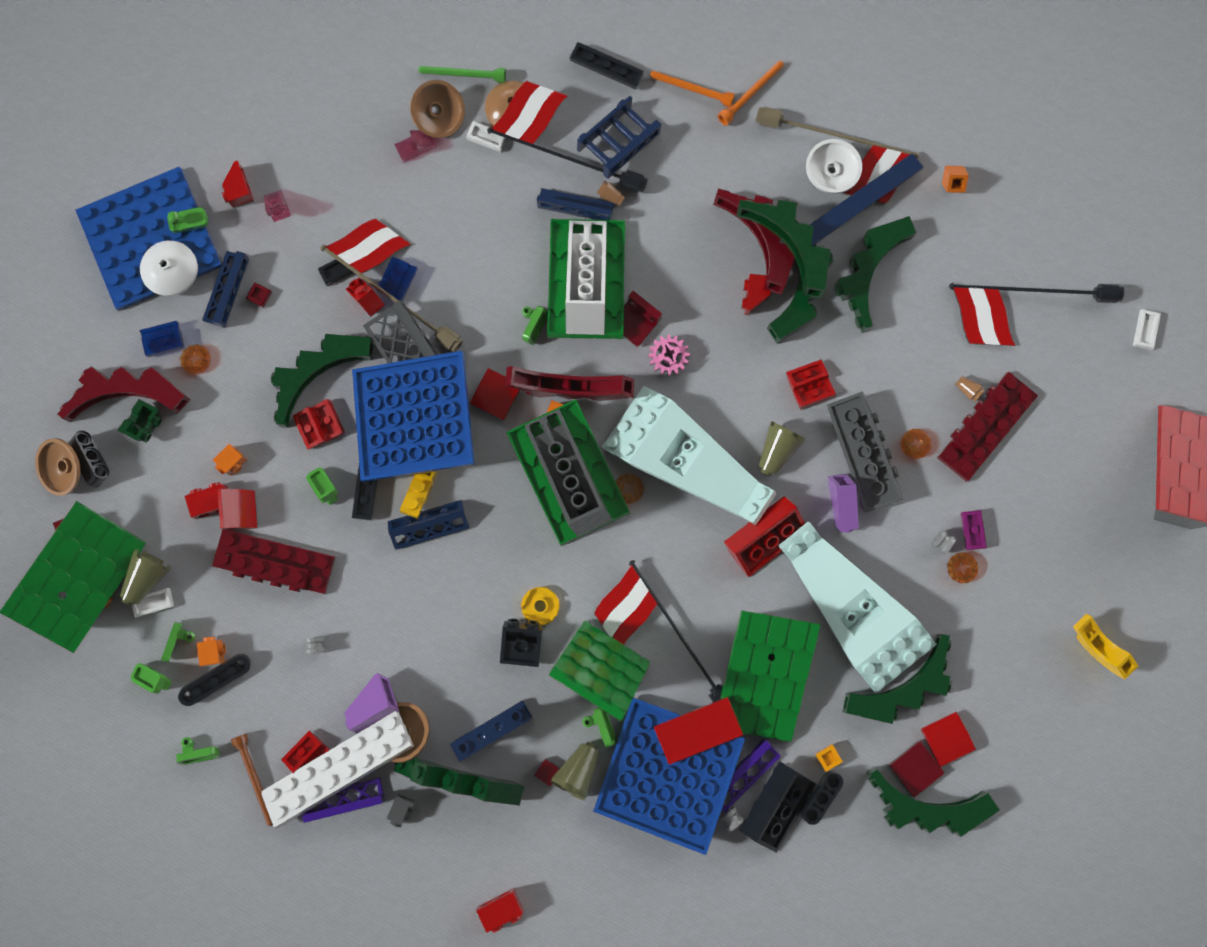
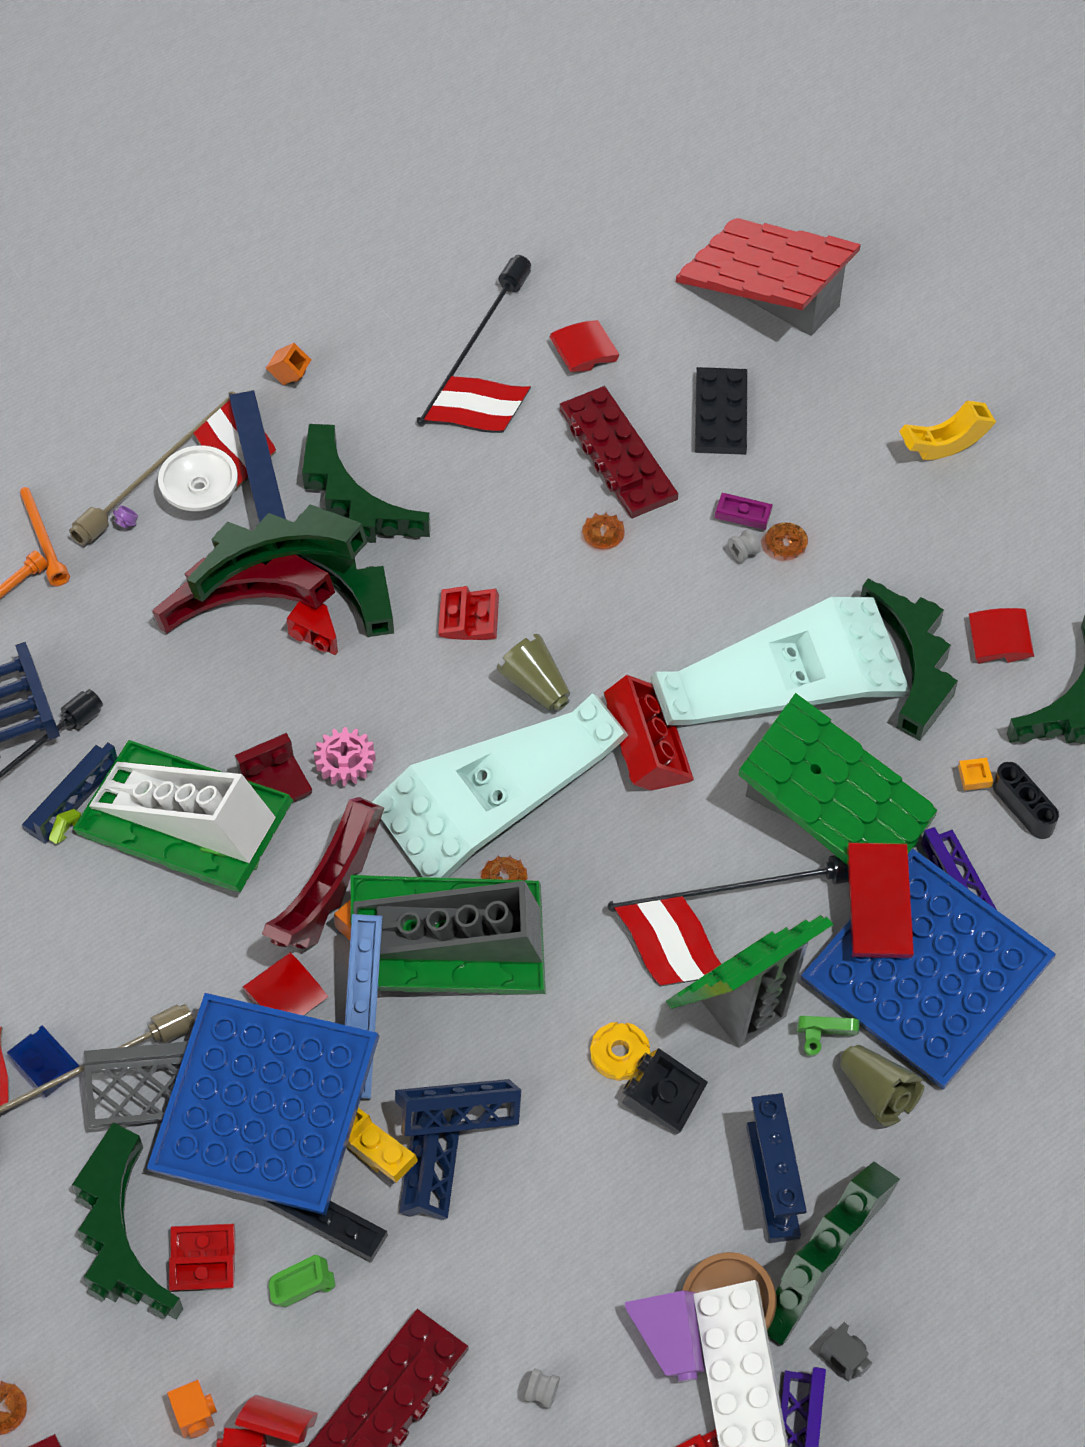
camera: 65 degrees left, 25 degrees down
(365, 296) = (45, 1113): red slope -> none
(461, 527) = (456, 1096): none -> dark blue fence
(500, 911) = (1046, 1266): red brick -> none
(508, 439) = (363, 978): none -> medium blue tile
(537, 321) = (205, 895): bright green piece -> none
(546, 771) = (865, 1130): dark red tile -> none
(552, 211) = (62, 824): none -> lime tile
(610, 193) = (80, 743): medium nougat cone -> none
(731, 819) = (1019, 914): light grey wheel -> none
(777, 807) = (1018, 856): black slope -> none
(787, 136) = (125, 516): none -> medium lavender plate
(844, 502) = (643, 629): medium lavender slope -> none
(865, 451) = (588, 583): dark grey plate -> none
(916, 769) = (1026, 684): dark red tile -> none
(971, 389) = (562, 448): medium nougat cone -> none
(1055, 482) = (721, 411): none -> black plate
(1067, 367) = (584, 345): none -> red slope
(1146, 329) = (578, 257): white tile -> none

